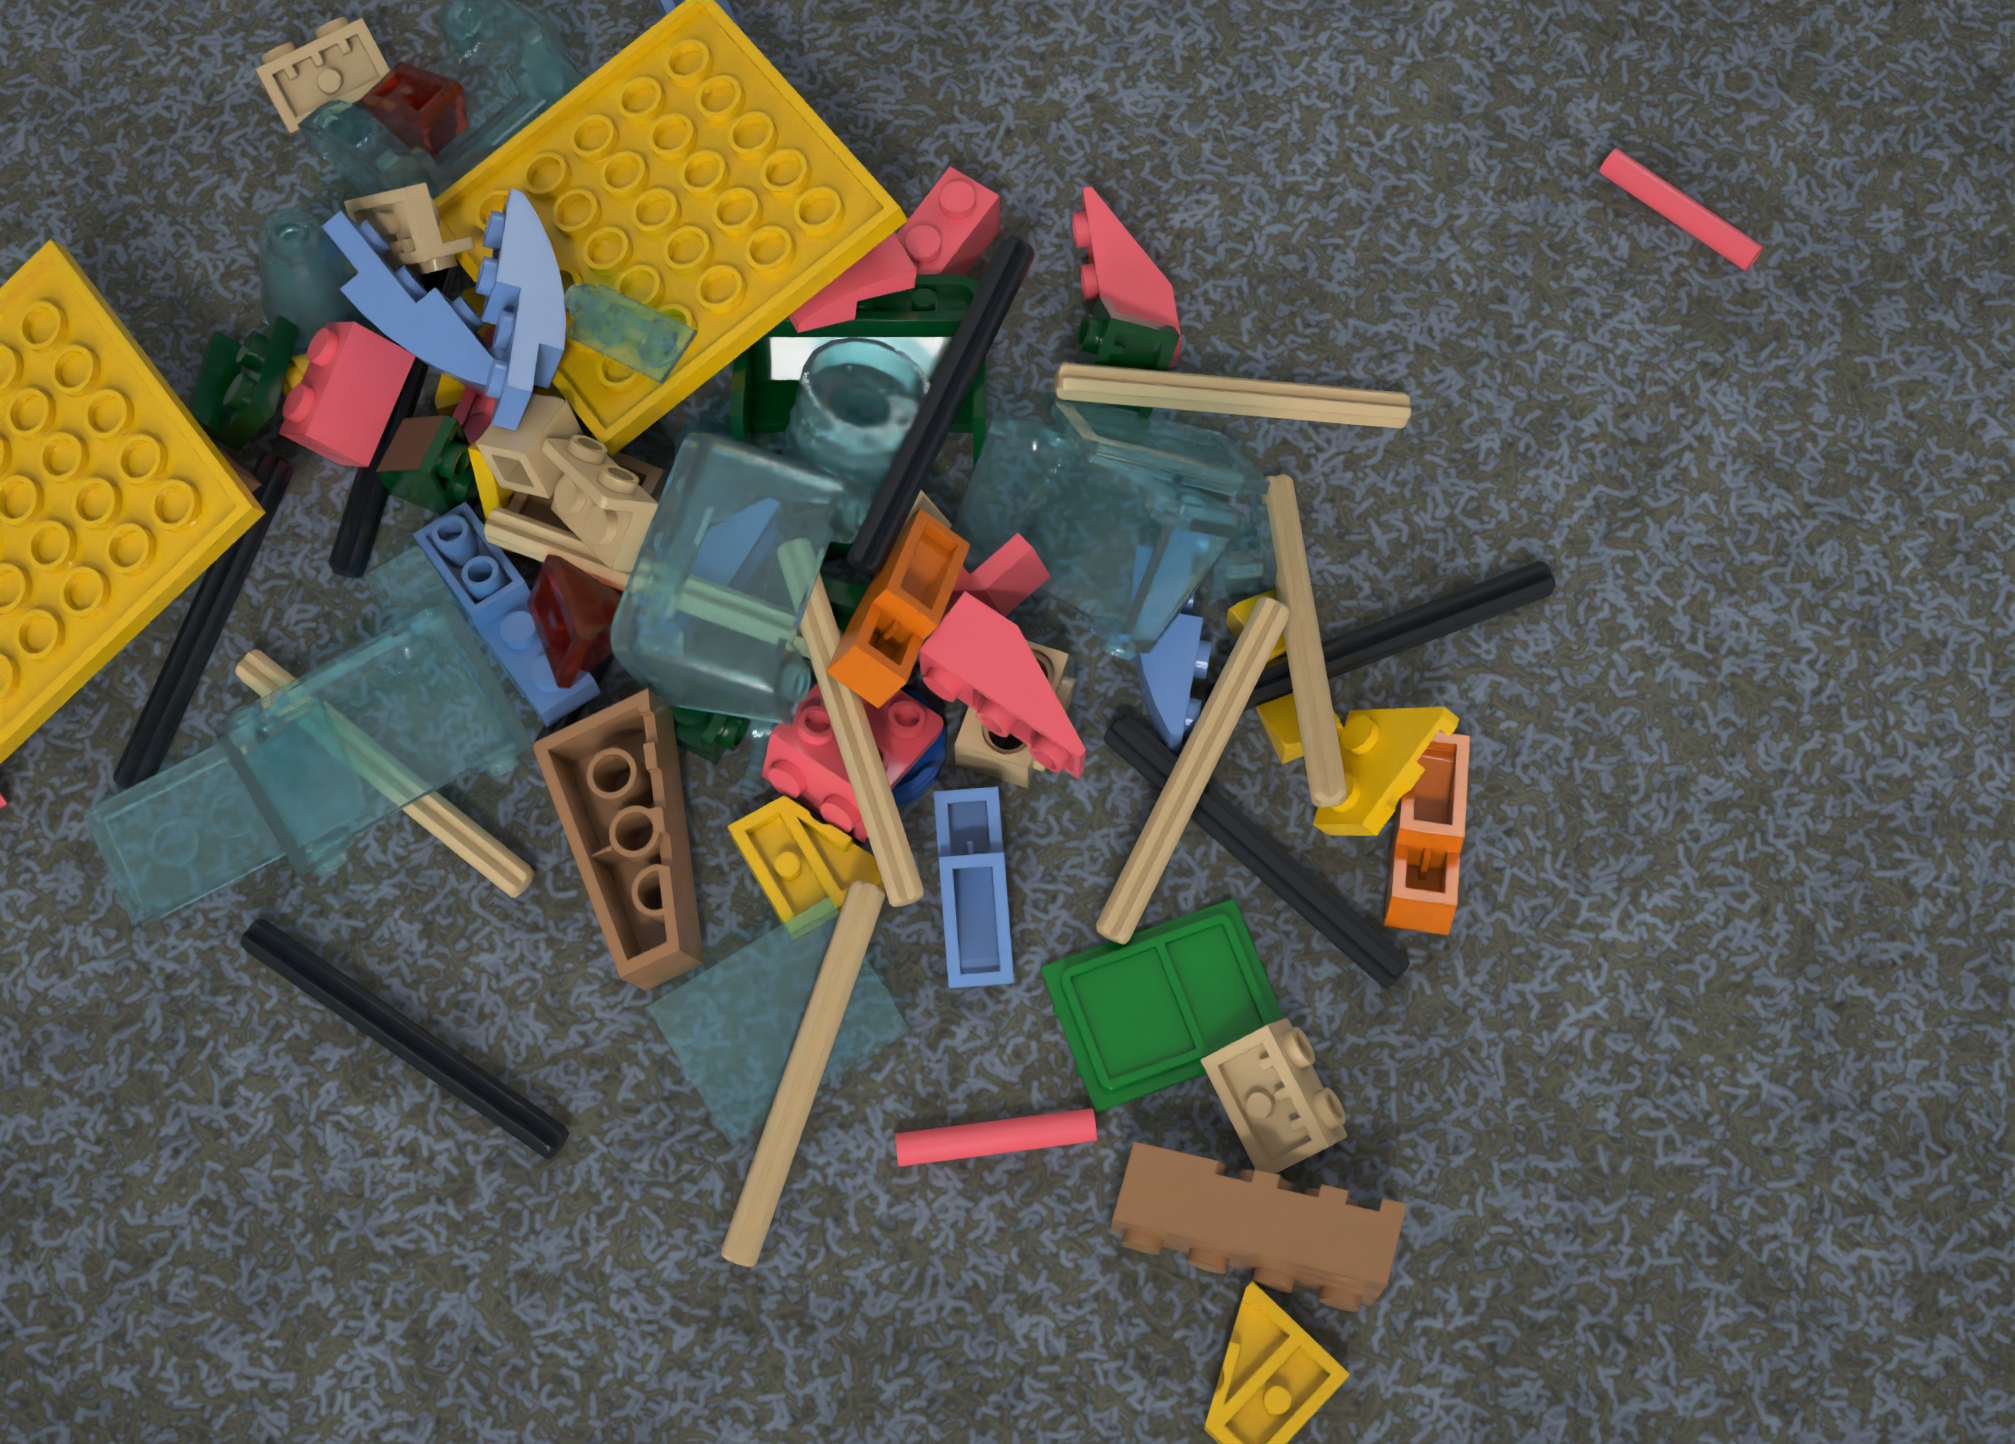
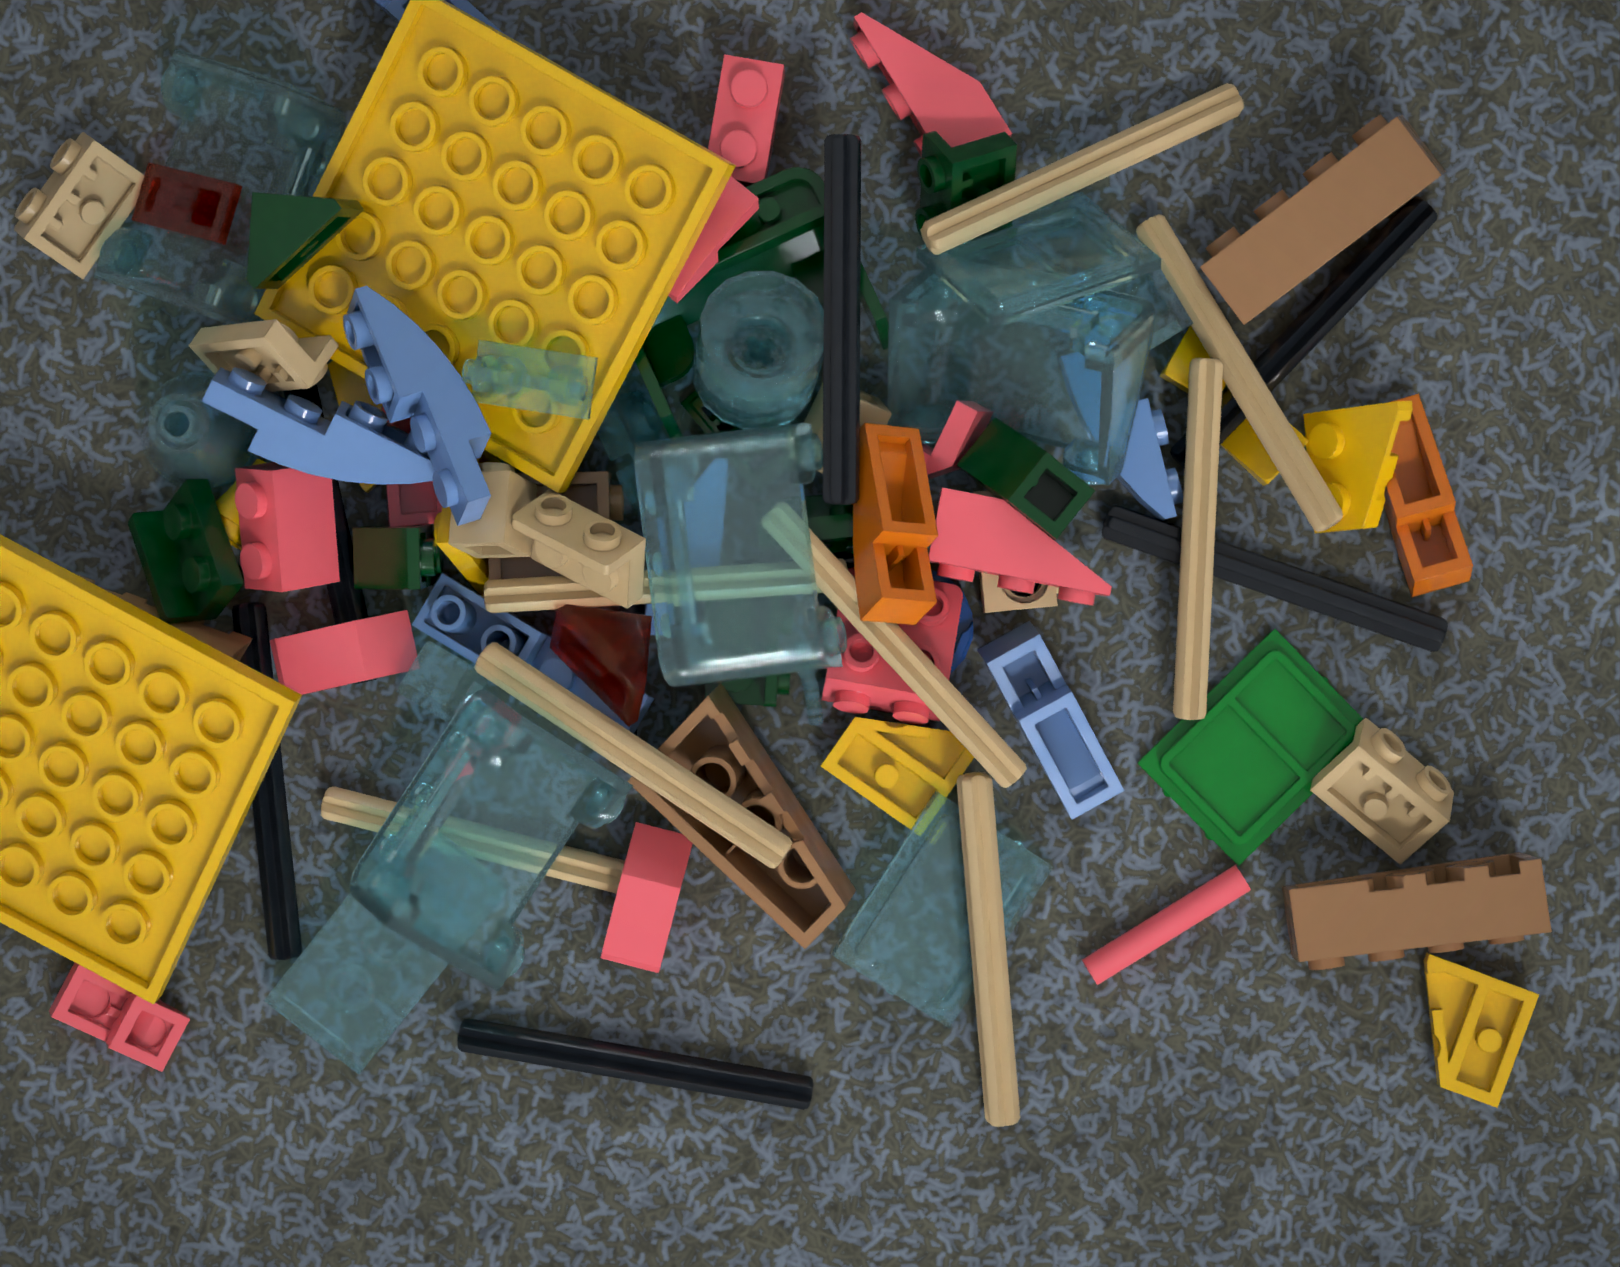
camera: 30 degrees left, 20 degrees up
(326, 529) = (345, 653): none -> coral slope
(485, 141) = (290, 232): none -> dark green slope
(492, 877) = (647, 897): none -> coral slope
(550, 717) = (633, 755): none -> tan axle
(1056, 628) = (1026, 478): none -> dark green slope
(1445, 531) = (1322, 218): none -> medium nougat wedge

